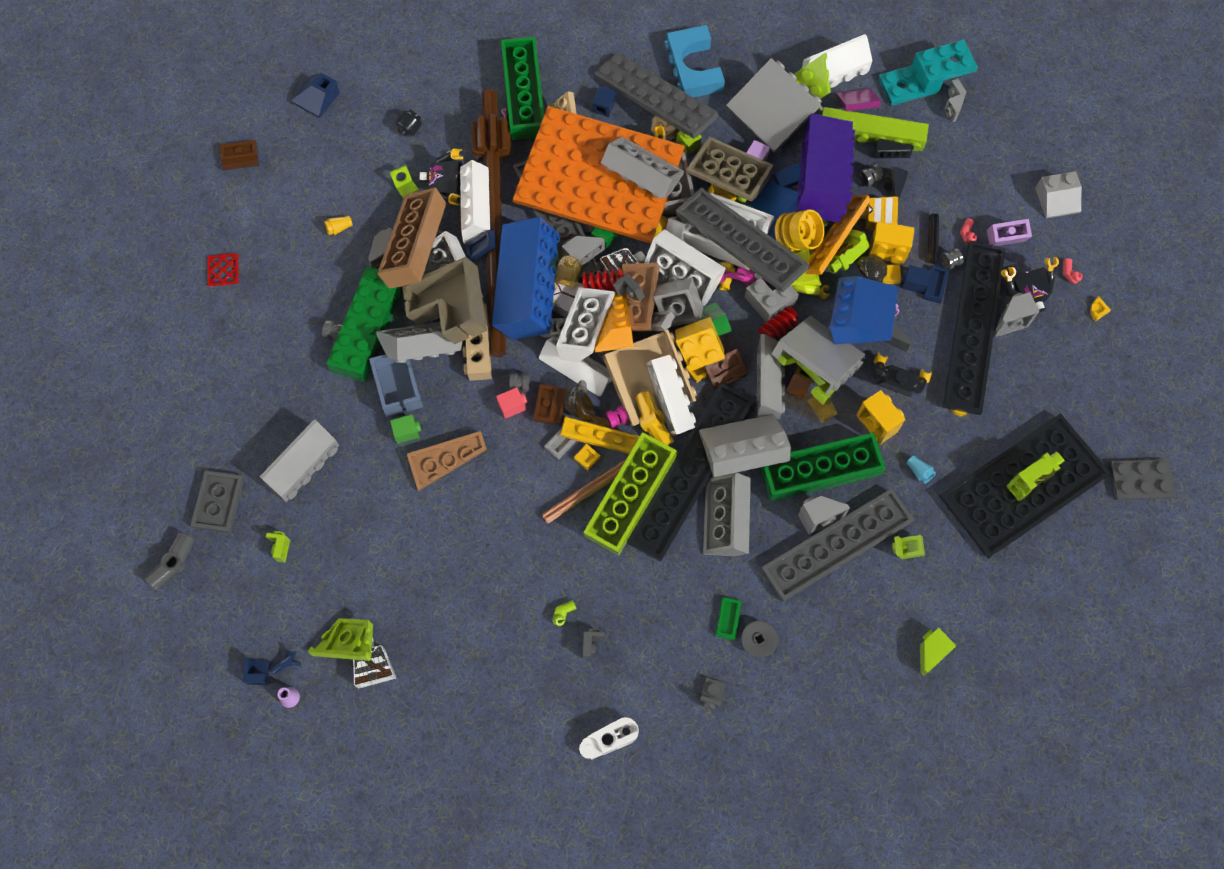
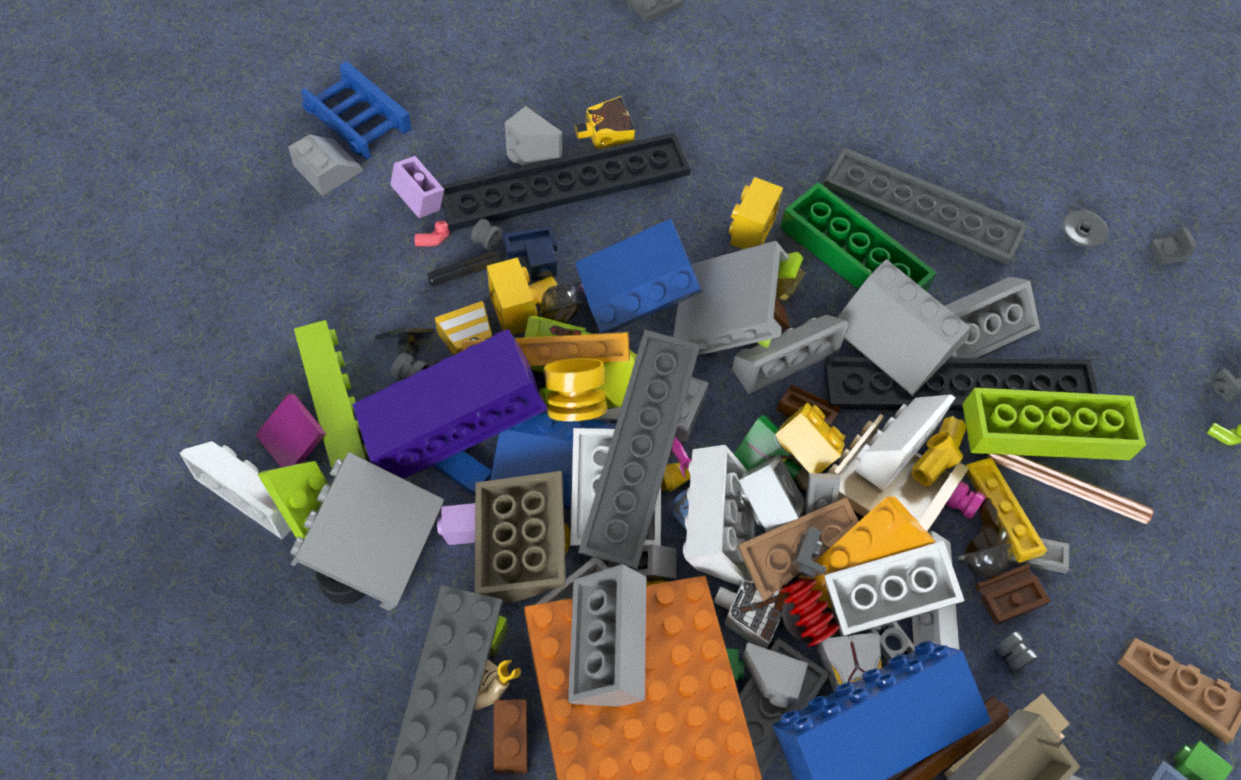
camera: 125 degrees left, 10 degrees down
(511, 402) = (1052, 644): coral brick -> none
(568, 271) = (828, 666): clear yellow brick -> none
(587, 457) = (1038, 511): yellow tile -> none
(629, 121) = (510, 737): none -> dark orange brick
(690, 81) = (311, 744): dark azure arch -> none
(728, 618) = (1085, 271): green tile -> none
(780, 323) = (716, 376): red piece -> none
(821, 513) = (913, 221): light grey slope -> none
(892, 149) = (358, 371): black slope -> none
(898, 378) = (692, 216): black torso -> none
(908, 546) = (875, 142): lime bracket -> none
(921, 470) = (780, 164): medium azure cone -> none
(928, 72) = (198, 366): teal bracket -> none
(934, 649) = (963, 83): lime slope -> none
(957, 94) = (238, 316): light grey slope -> none
(991, 510) = (727, 75): black plate -> none
(1012, 377) = (607, 124): none -> torso
(1035, 474) = (723, 53): lime hips -> none
(1037, 282) = (474, 143): black torso -> none
(1068, 273) = (431, 122): coral arm -> none
(1096, 246) = (364, 91): none -> blue fence
(1099, 309) = (462, 82): yellow tile -> none

